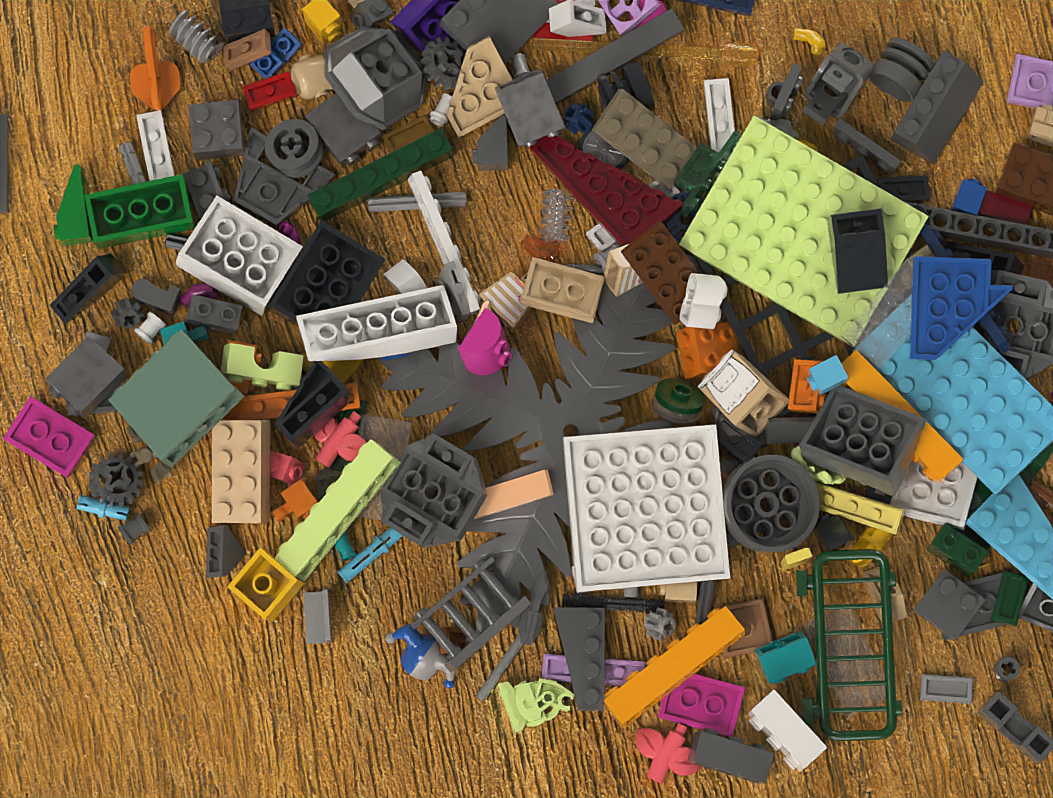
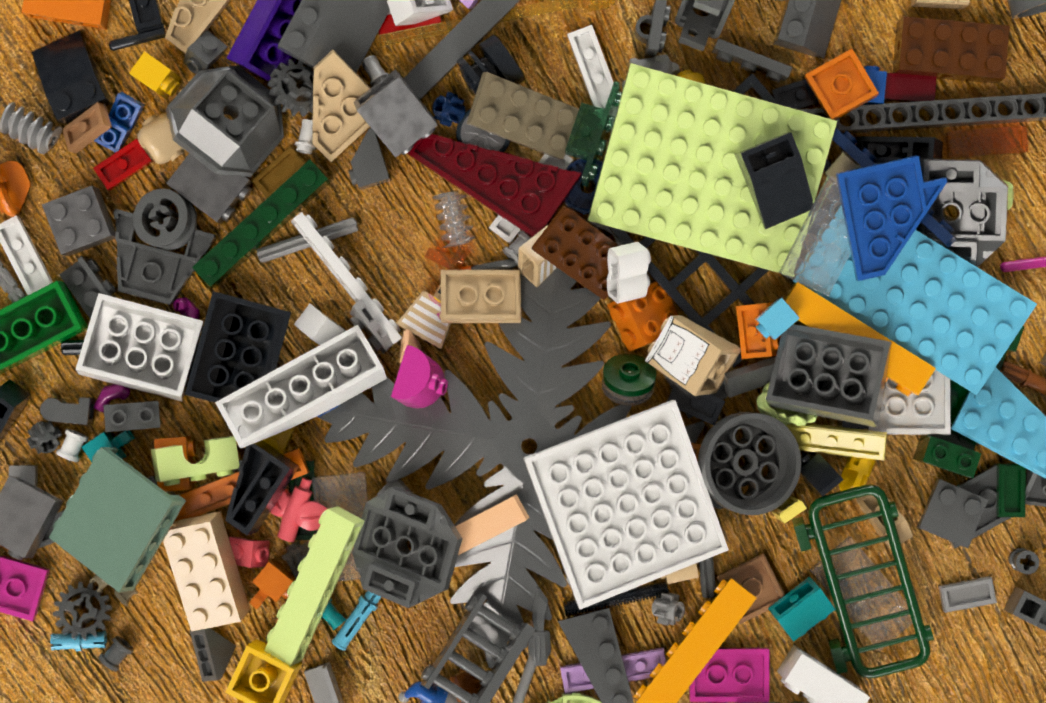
camera: 20 degrees left, 10 degrees up
(941, 187) = (841, 85): none -> orange tile

